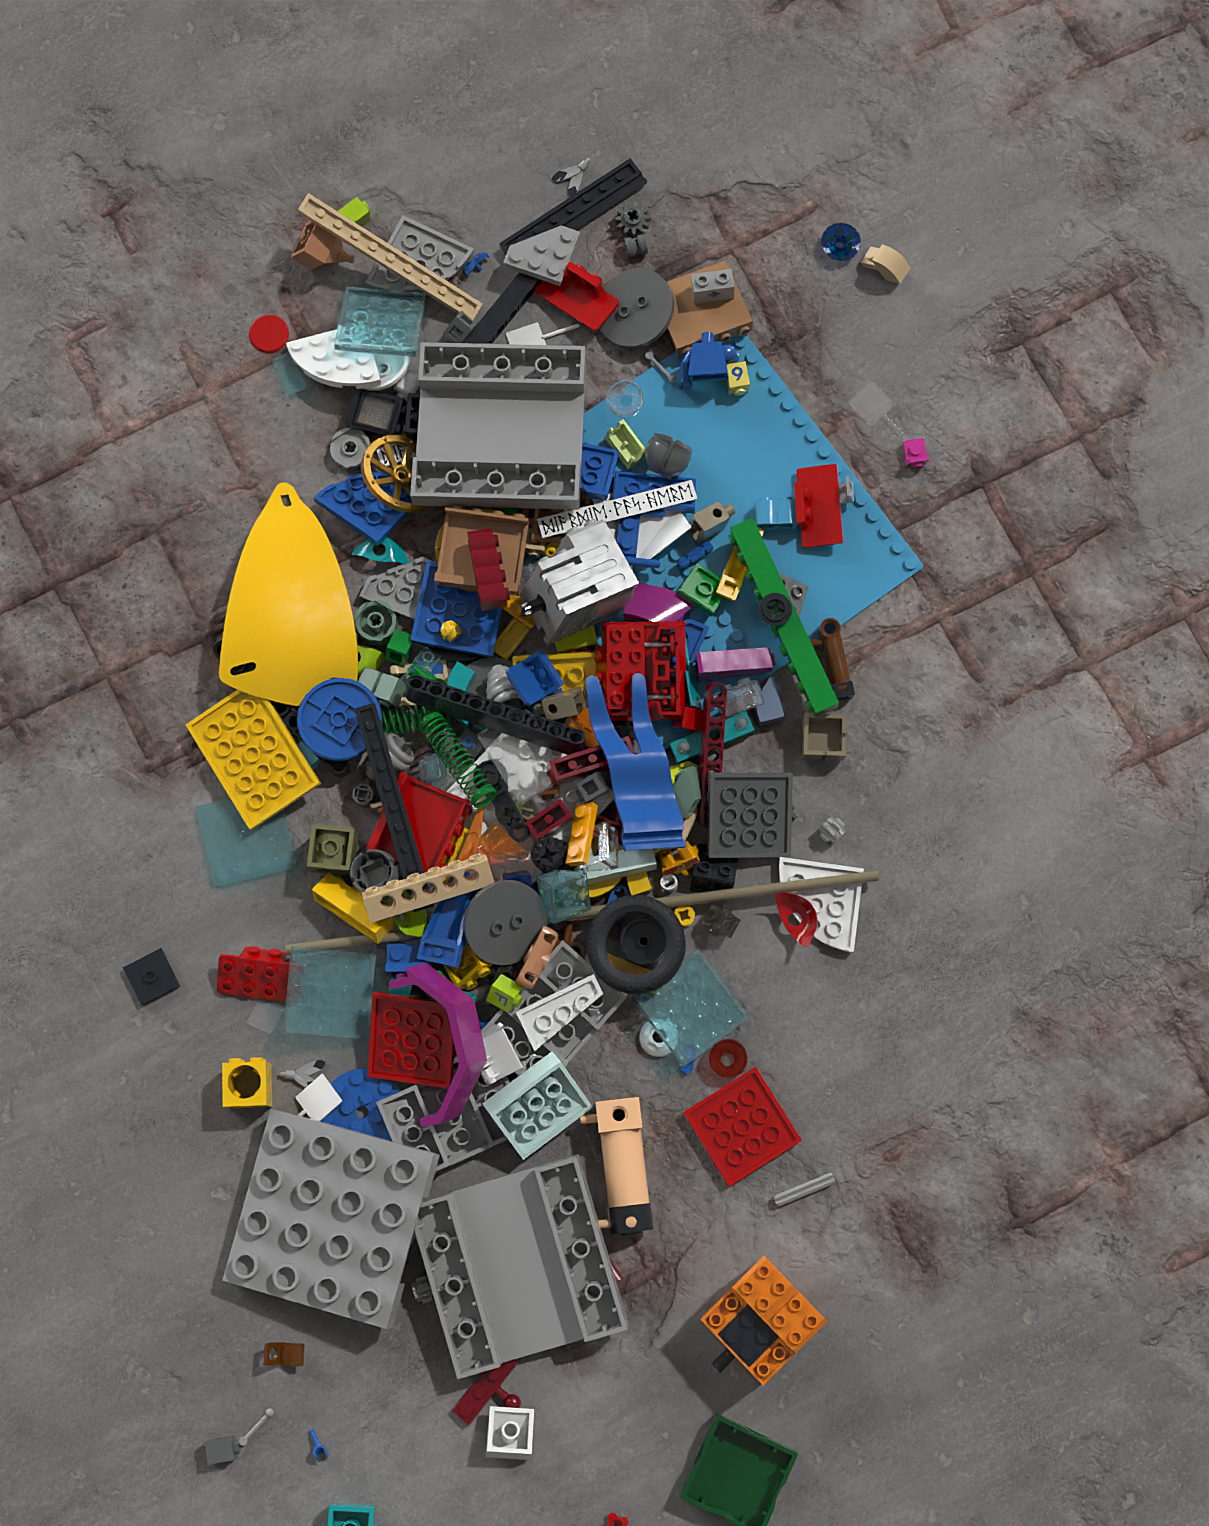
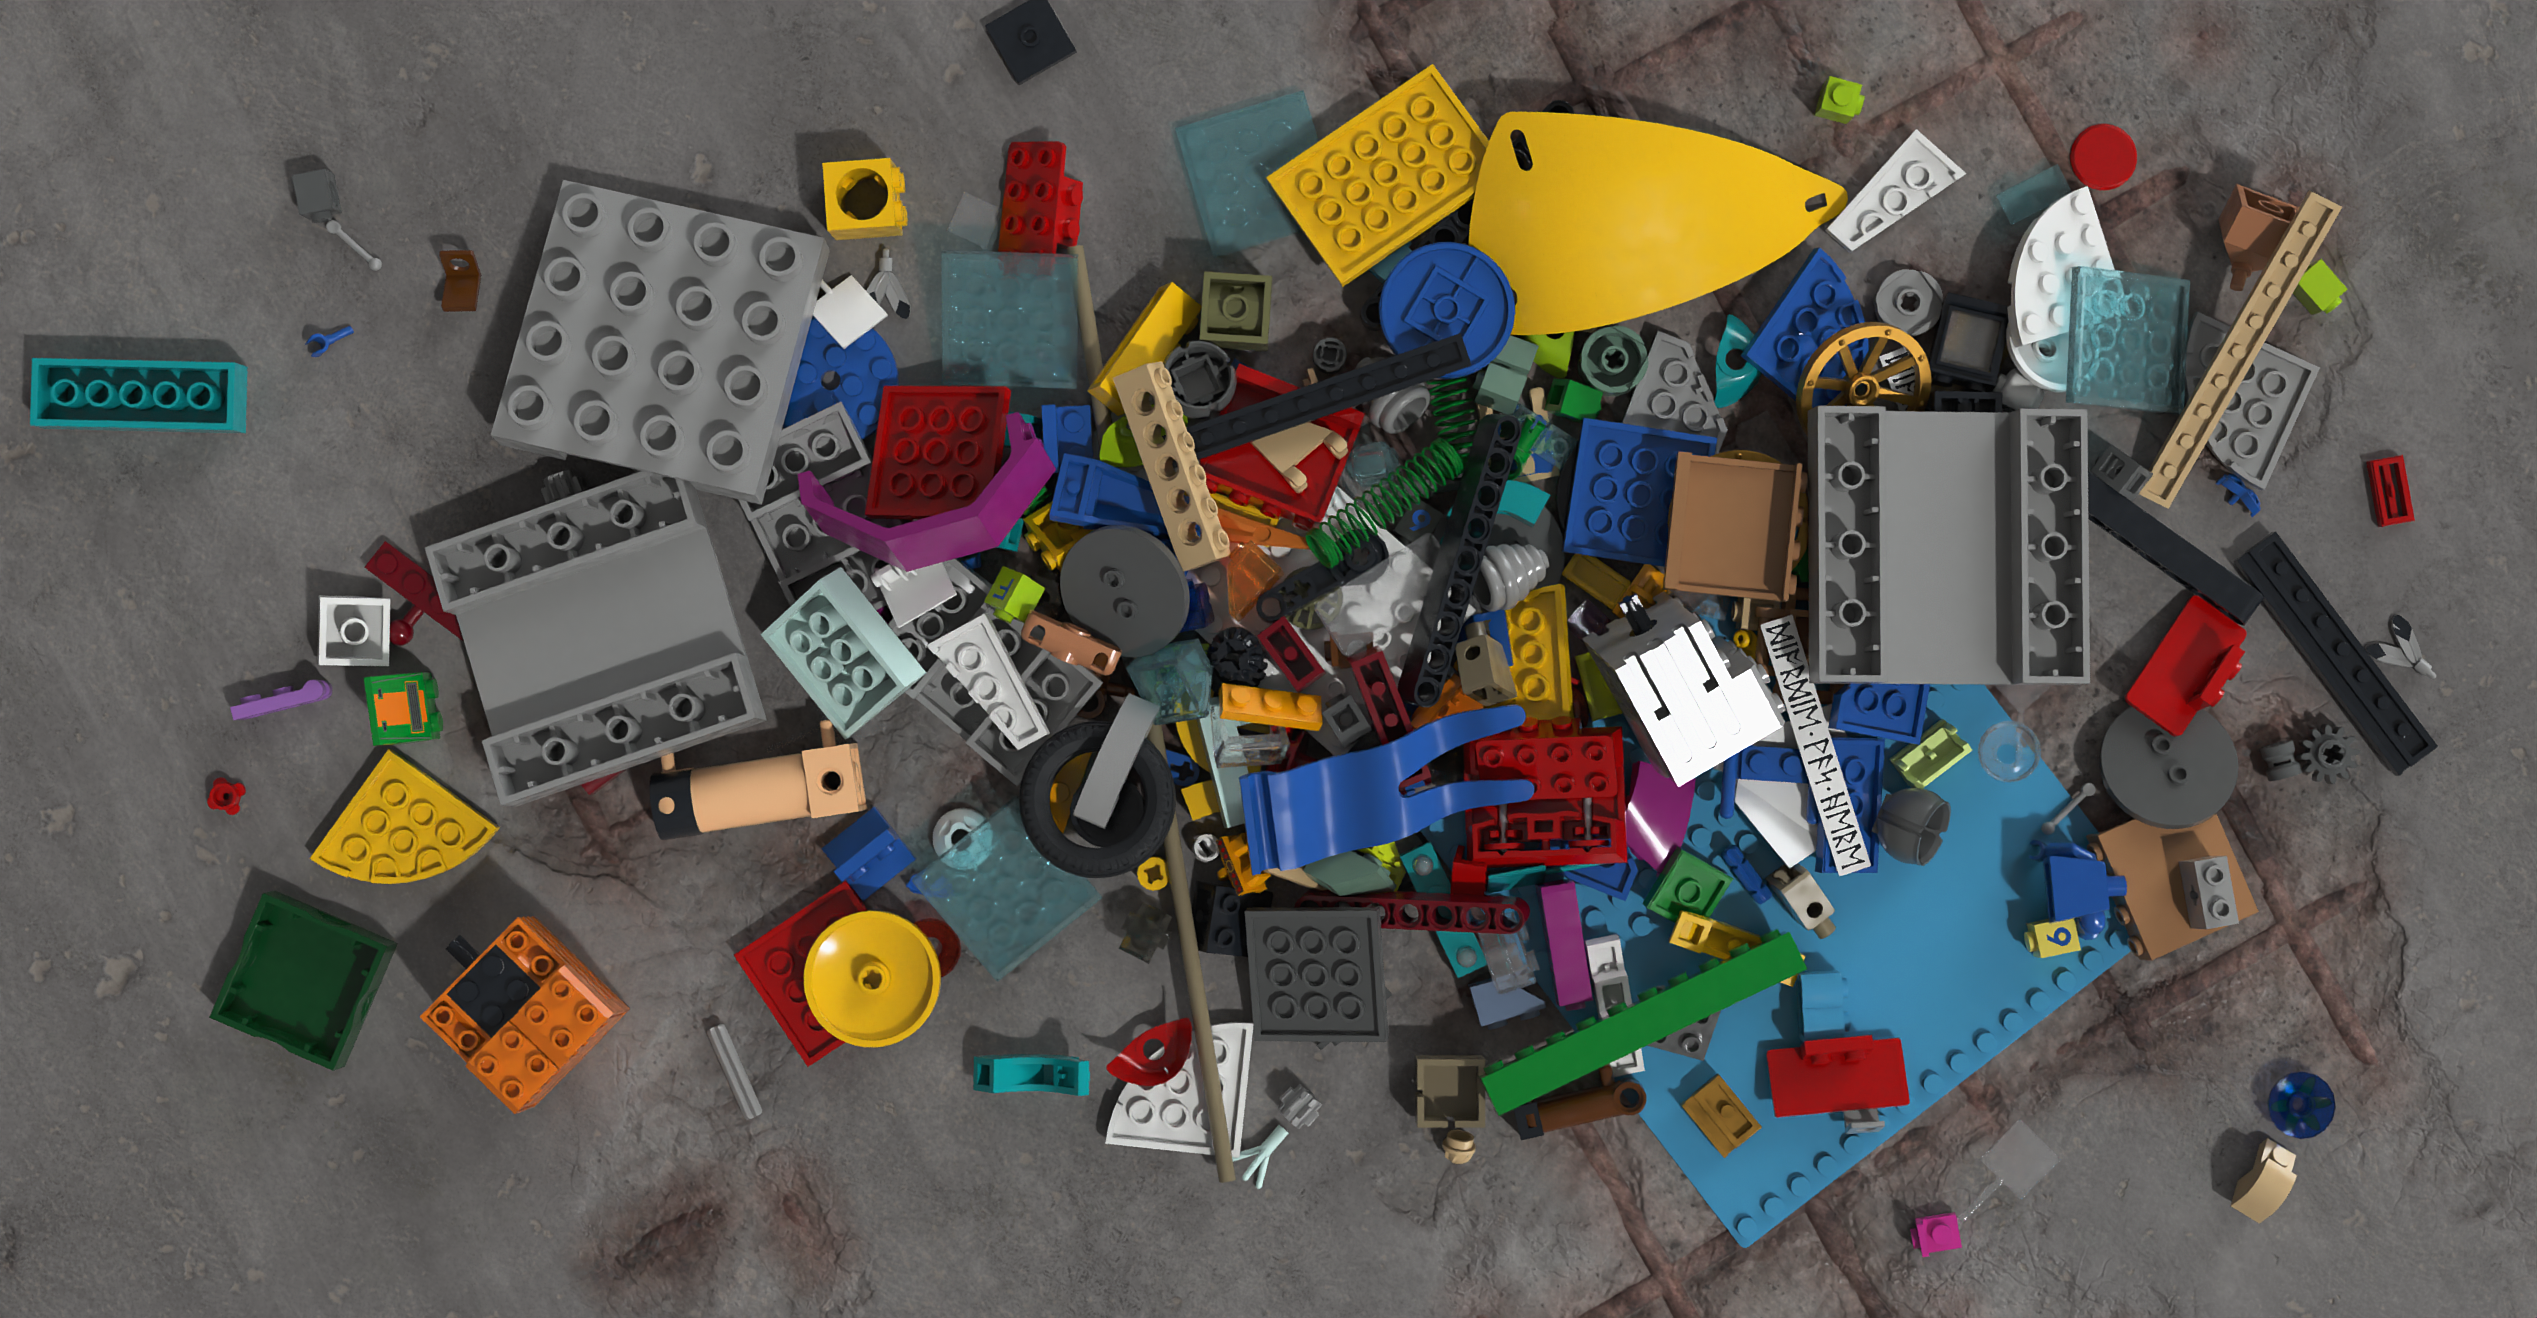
camera: 90 degrees right, 10 degrees up
(224, 483) = (1839, 100): none -> lime brick
(278, 449) = (1901, 185): none -> white wing
(419, 817) = (1291, 446): none -> tan flag
(450, 630) = (1600, 481): yellow plate -> none
(478, 186) = (2377, 491): none -> red tile
(487, 569) = (1697, 537): dark red brick -> none
(532, 335) = (2111, 591): white piece -> none
(534, 678) = (1523, 620): blue bracket -> none
(535, 643) = (1586, 620): none -> tile
(544, 254) = (2256, 607): light grey plate -> none
(553, 1484) = (283, 699): none -> medium lavender plate
(562, 1397) = (403, 708): none -> green slope
(612, 929) = (1115, 760): none -> light grey slope
(641, 1405) = (402, 828): none -> yellow plate
(666, 1097) = (868, 854): none -> blue bracket
(746, 1093) = (872, 978): none -> yellow dish
(762, 637) = (1610, 988): none -> white slope
(783, 604) = (1663, 999): black gear -> none
(809, 995) = (1031, 1073): none -> teal arch
(841, 575) = (1721, 1115): none -> pearl gold plate
(858, 734) = (1459, 1146): none -> tan plate
(859, 853) = (1263, 1152): none -> light aqua plant

